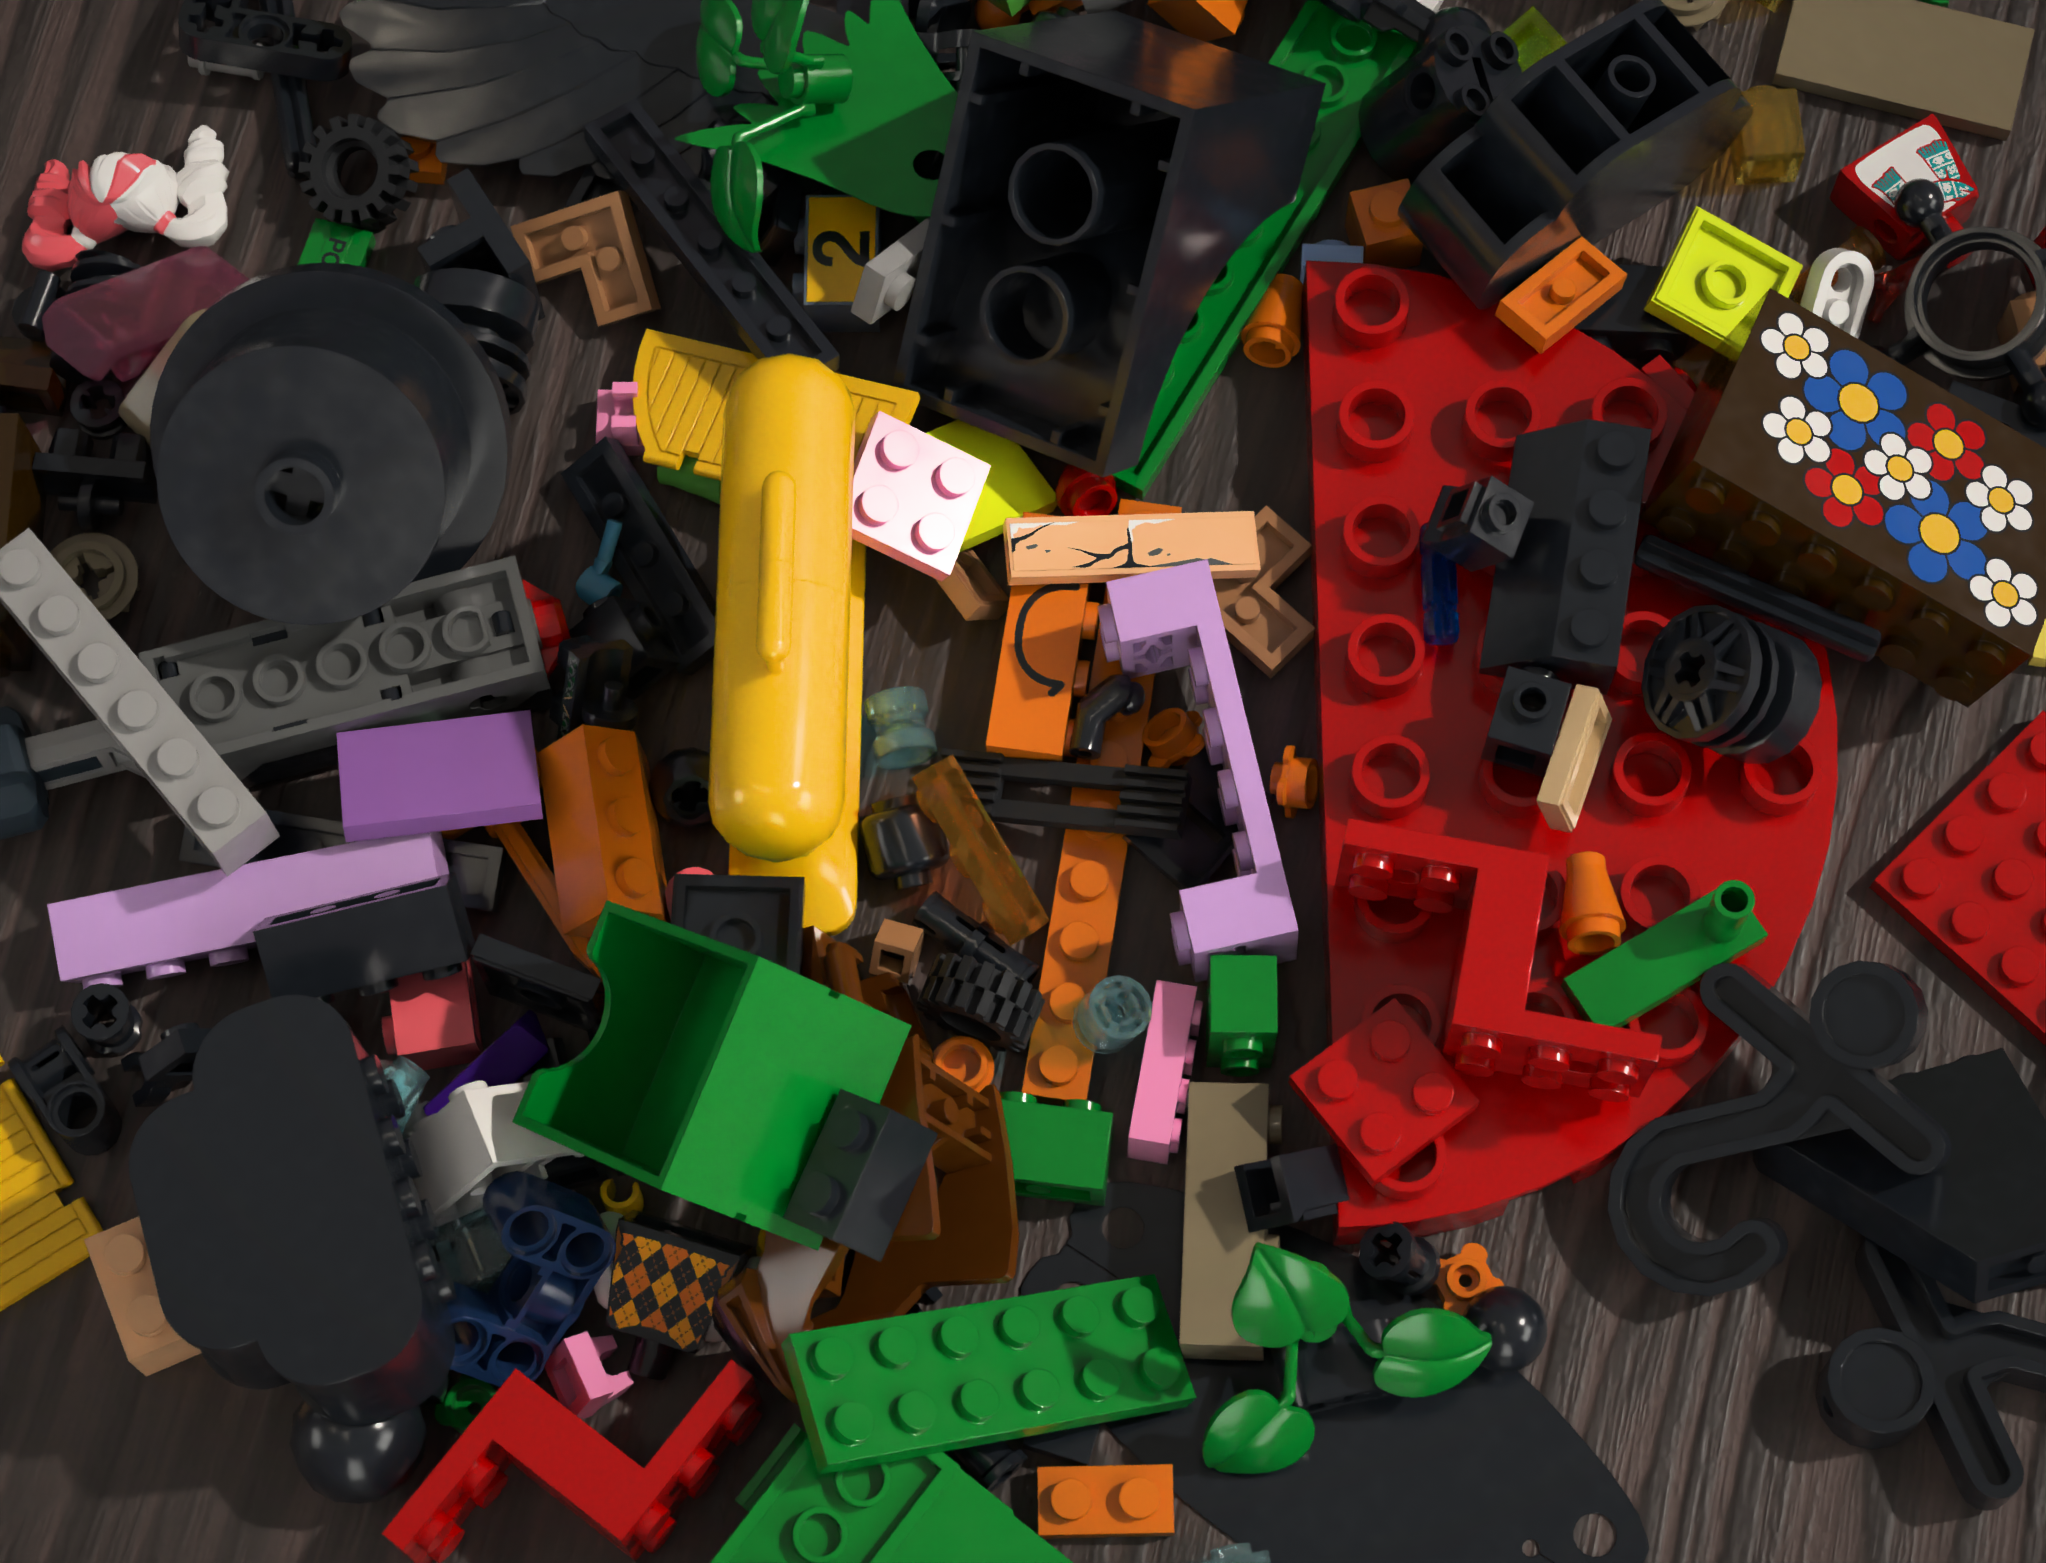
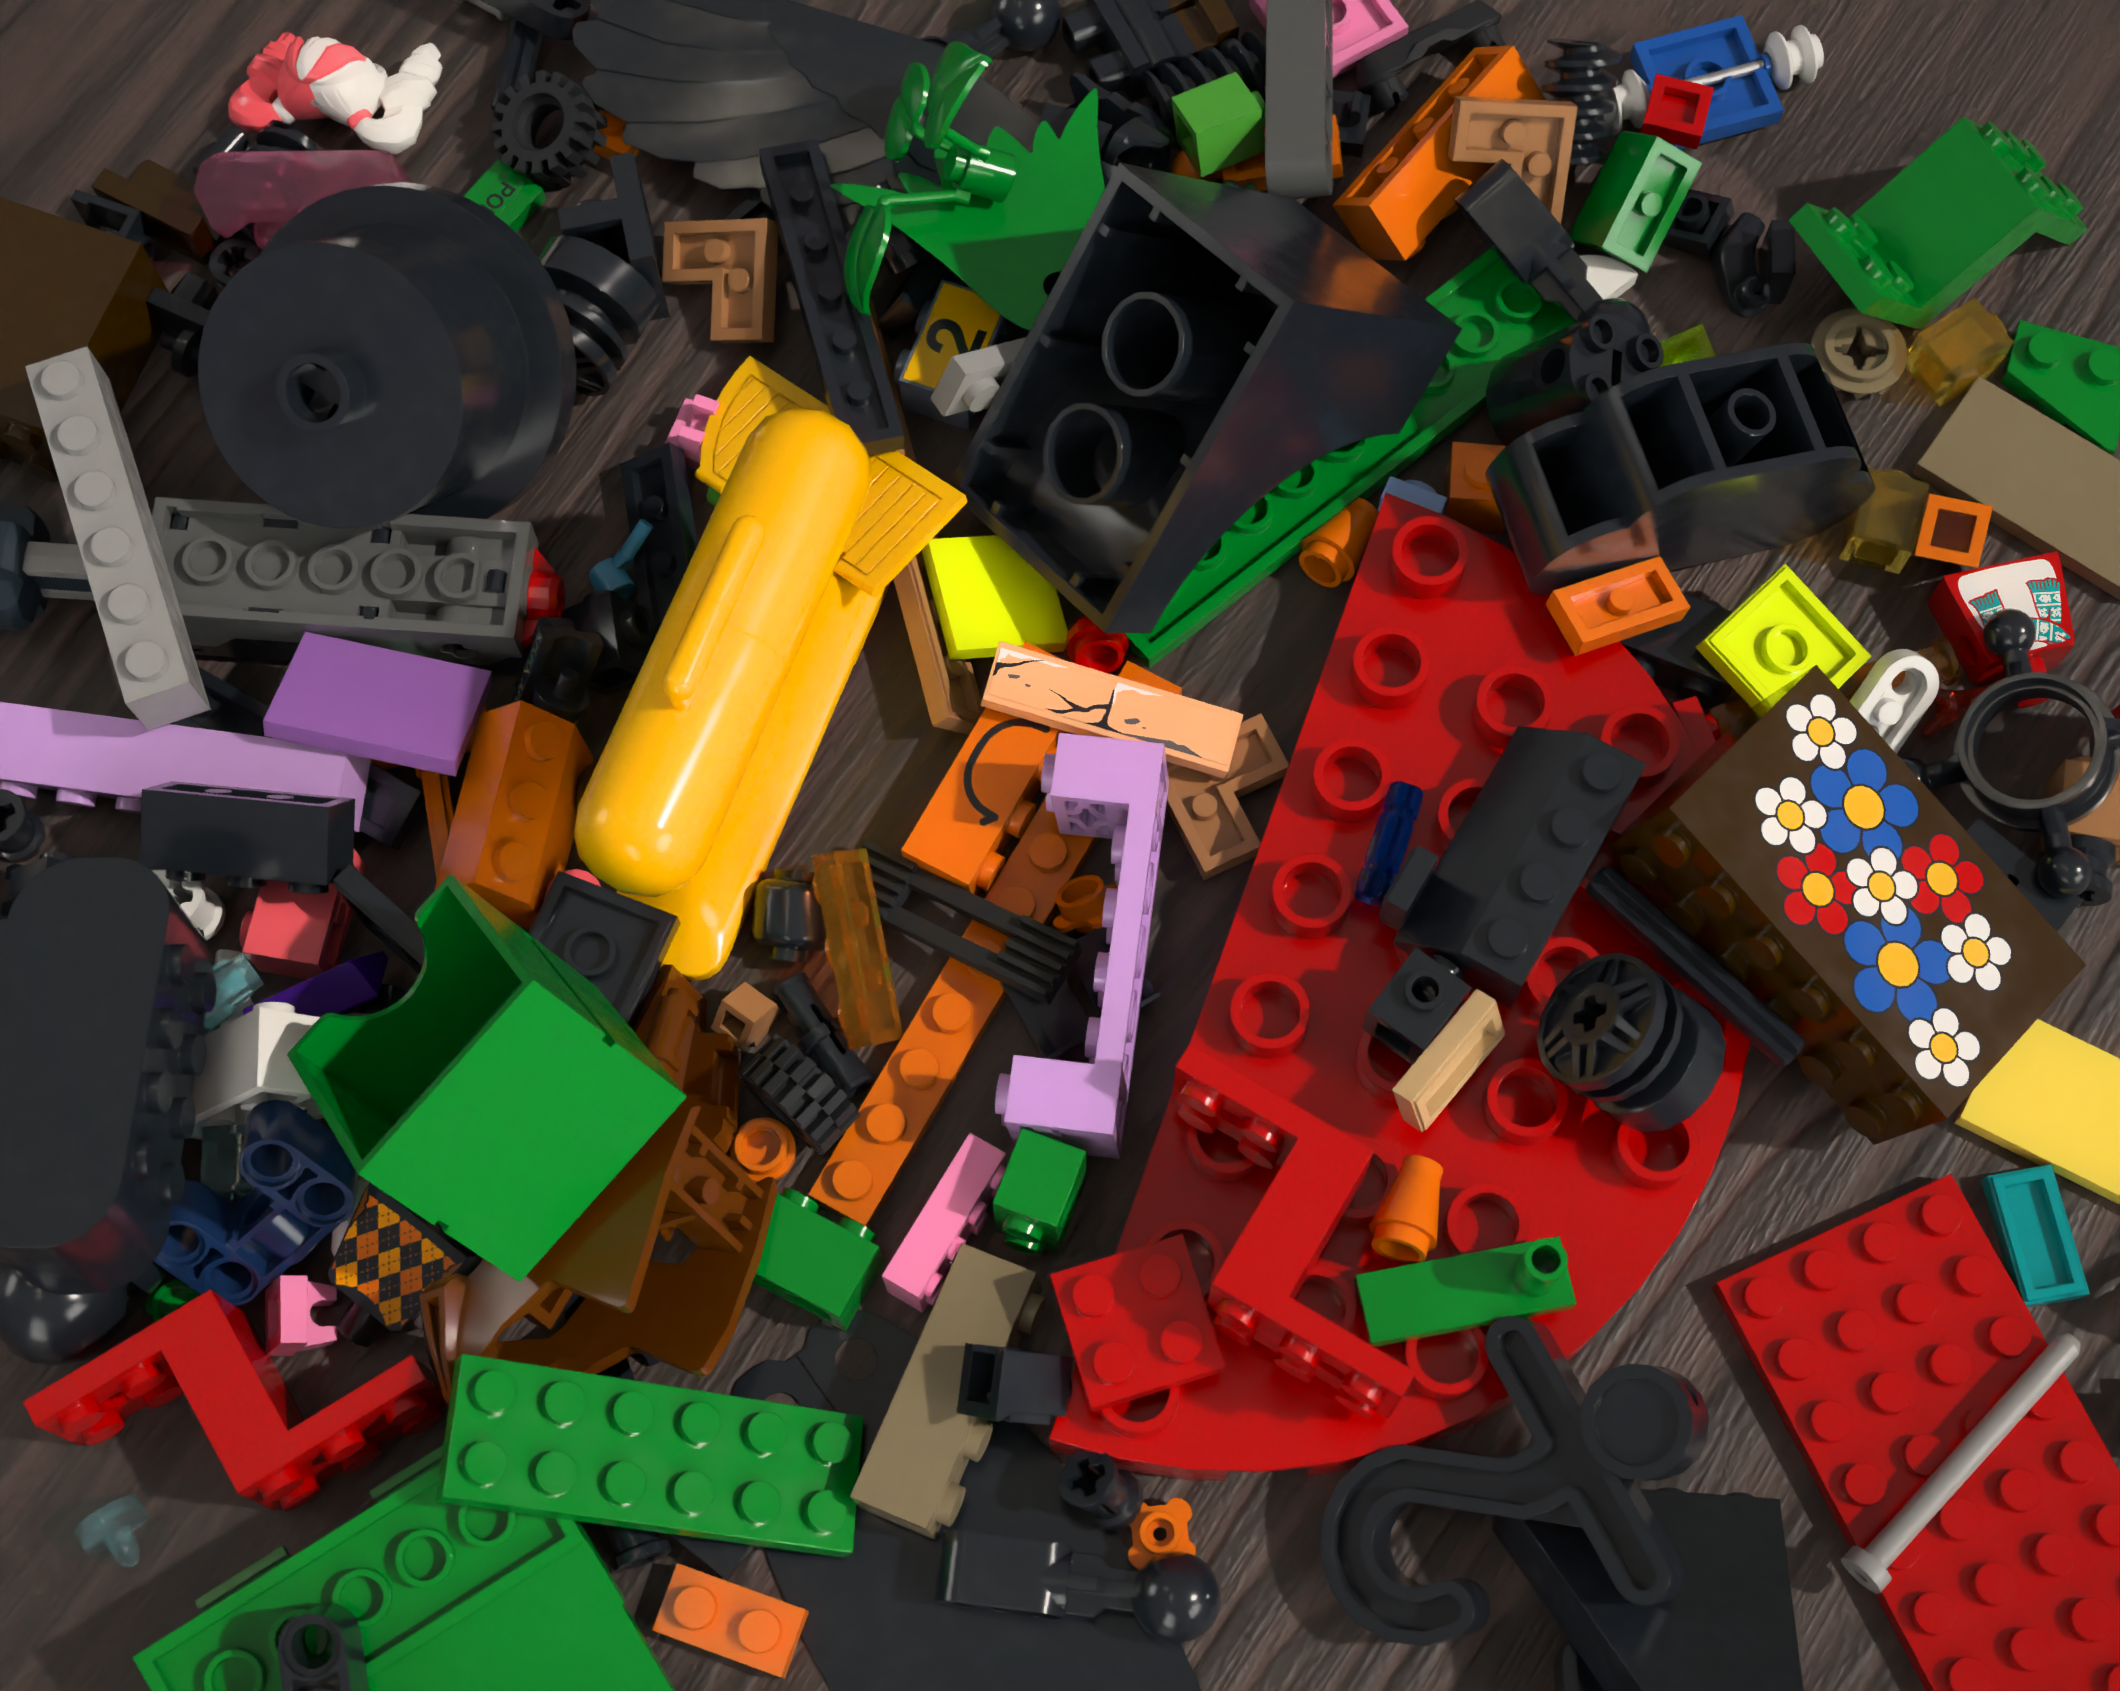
camera: 20 degrees right, 0 degrees up
(106, 558) = (146, 405): dark tan gear -> none
(860, 1174) = (576, 1226): black brick -> none
(900, 727) = (834, 806): clear light blue wheel -> none
(914, 495) = (918, 590): plate -> none
(1099, 706) = (1022, 850): black arm -> none
(1103, 1026) = (908, 1160): clear light blue wheel -> none
(1294, 782) = (1184, 987): orange plate -> none
(1299, 1299) = (944, 1499): green plant -> none
(1476, 616) = (1407, 887): none -> black tile
(1478, 523) = (1442, 798): black window -> none
(1834, 125) = (1952, 530): none -> orange brick

